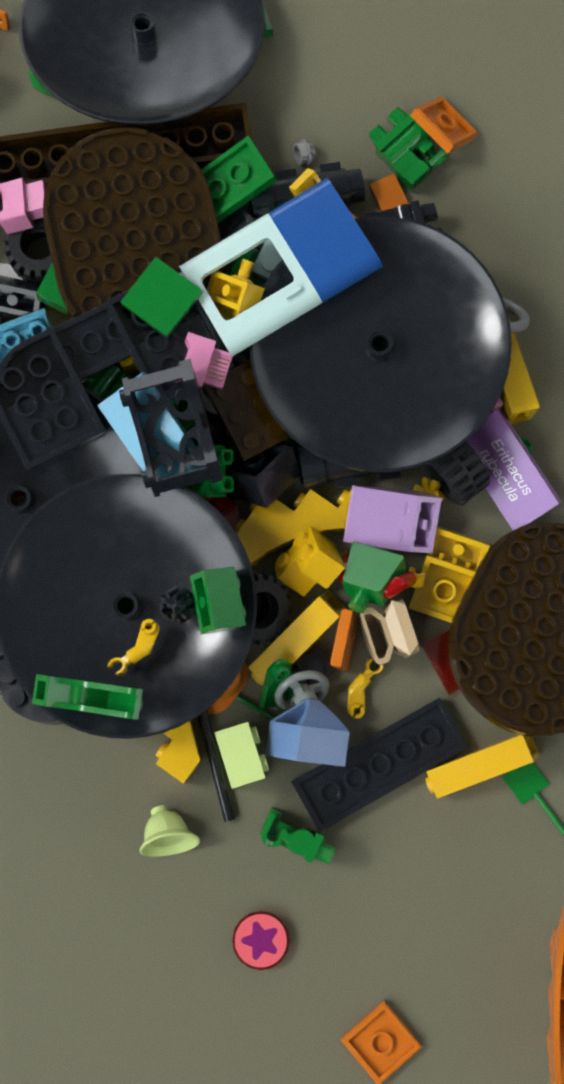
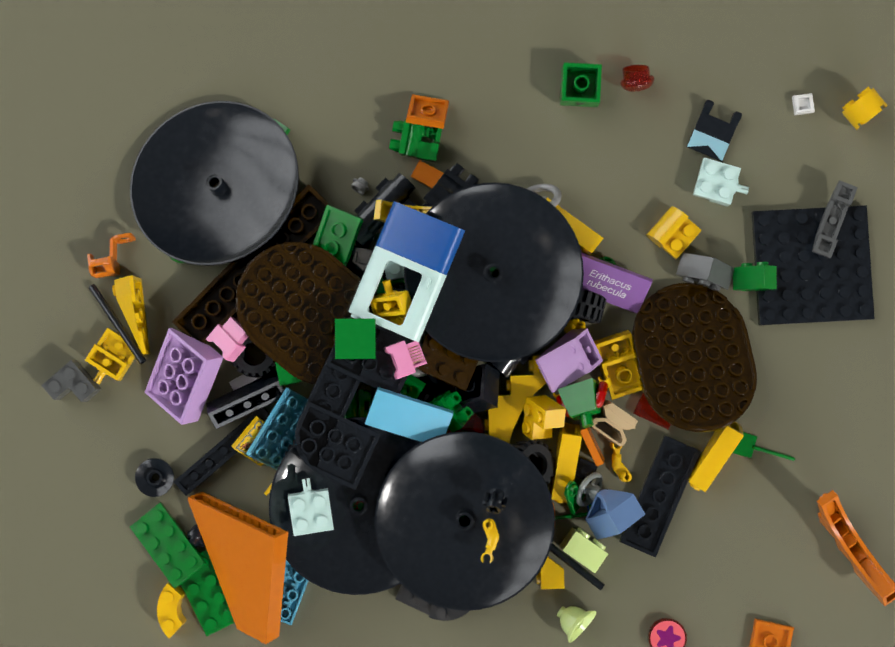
camera: 45 degrees left, 5 degrees up
(87, 696) = (489, 584): green arch -> none
(185, 390) = (446, 407): black fence -> none
(218, 600) = (516, 483): green brick -> none
(297, 840) = (647, 570): green hips -> none

